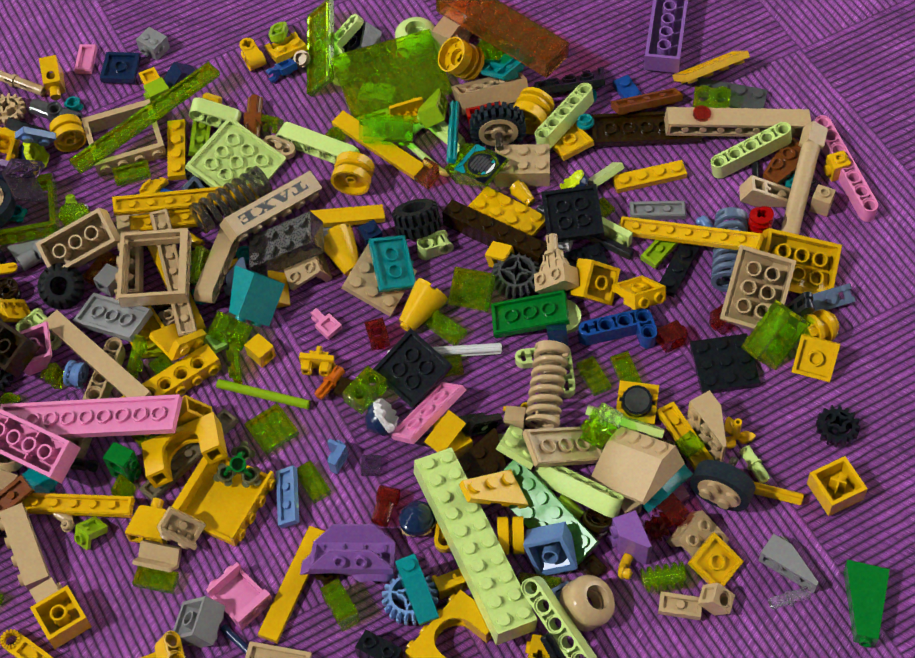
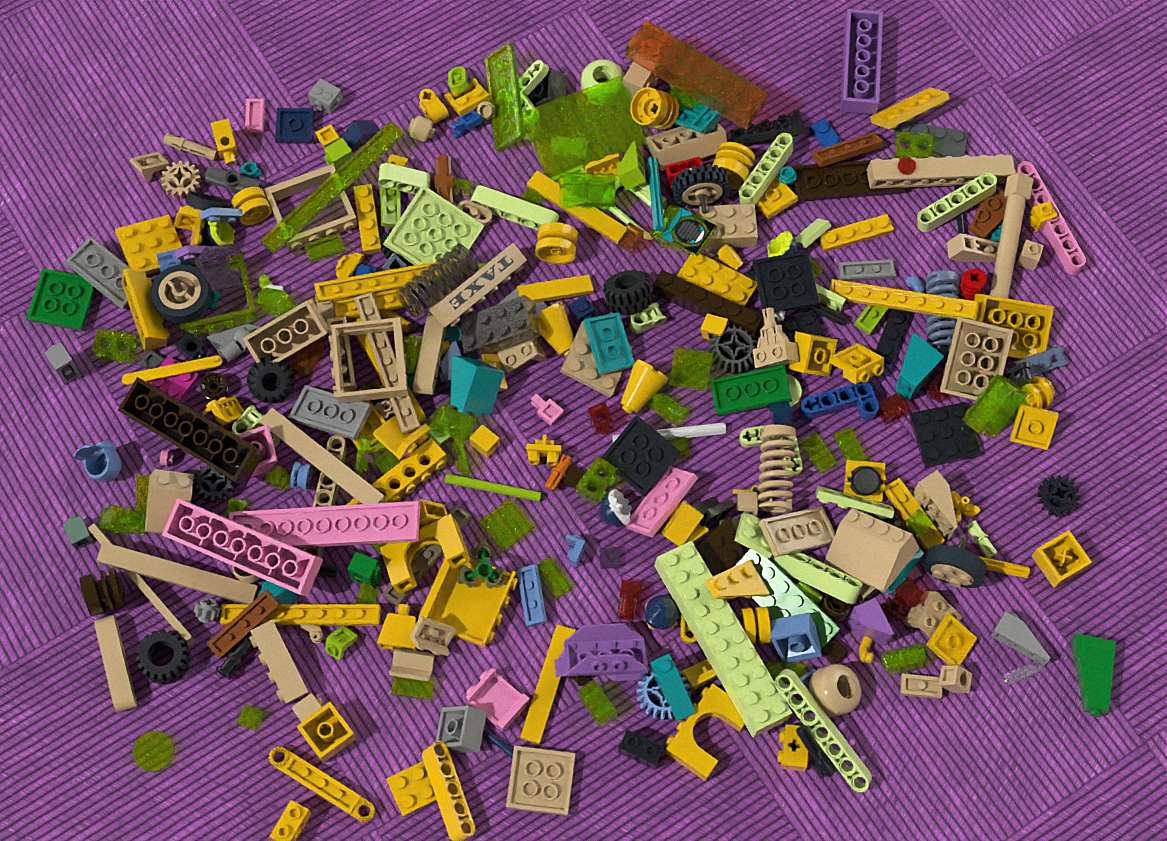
camera: 10 degrees left, 10 degrees up
(105, 279) = (319, 370): light grey brick -> none
(238, 73) = (421, 128): none -> tan head
(601, 425) = (833, 509): clear neon green brick -> none
(699, 297) = (918, 367): none -> teal slope

